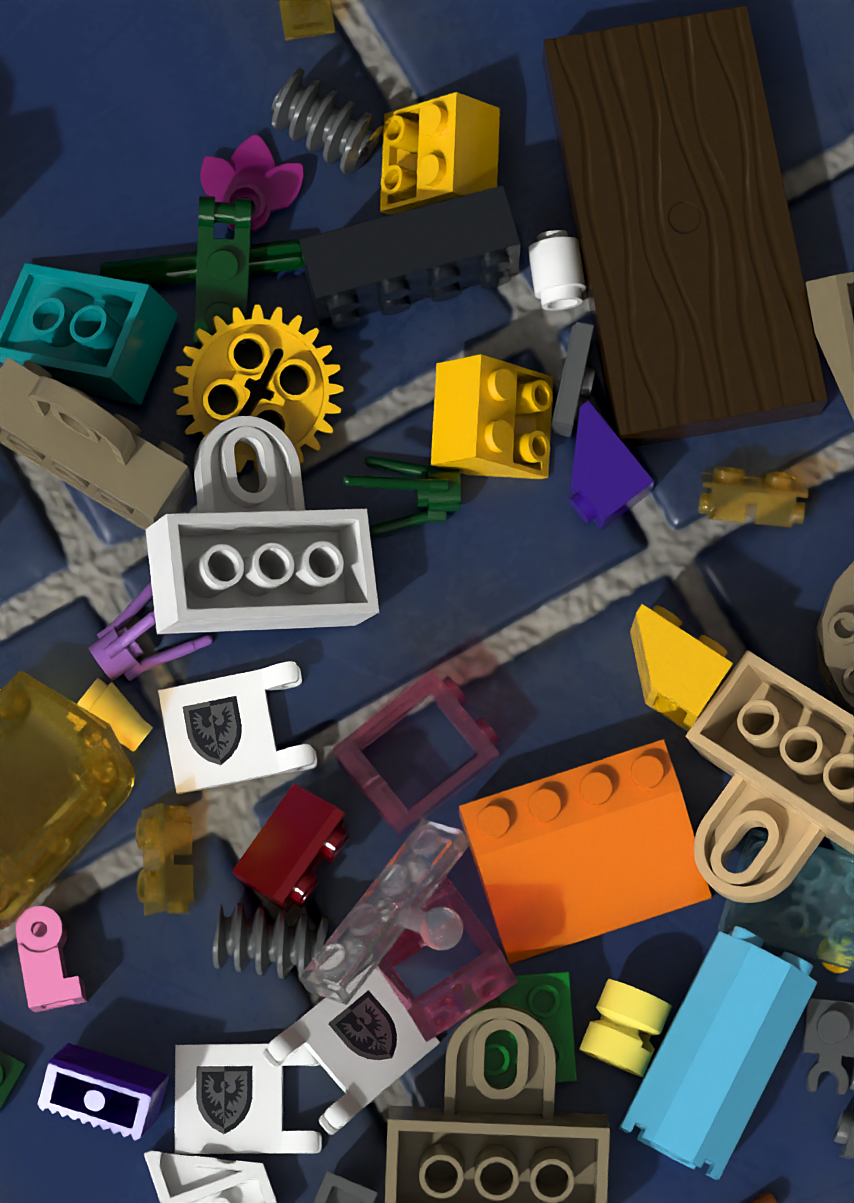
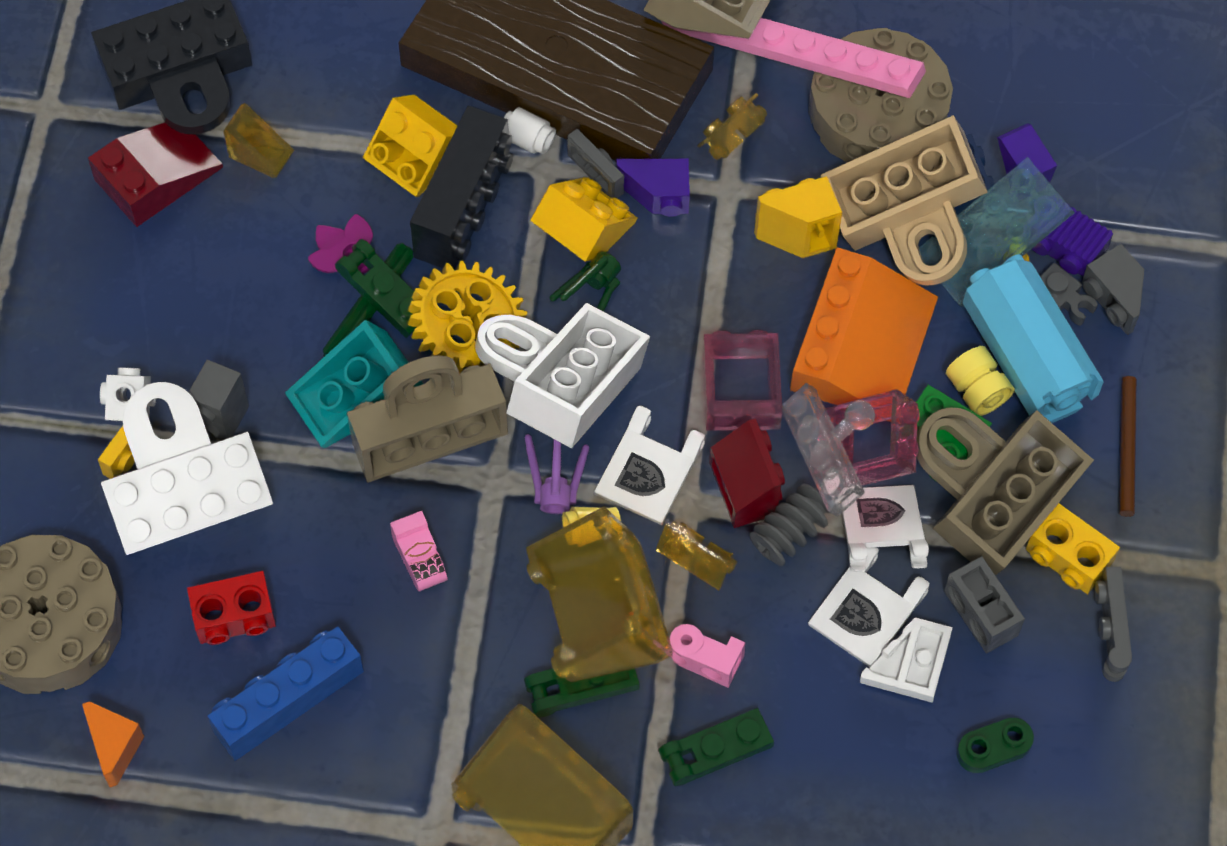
camera: 55 degrees left, 15 degrees down
(103, 1090) = (809, 668): dark purple brick -> none
(323, 123) = (343, 182): dark grey piece -> none

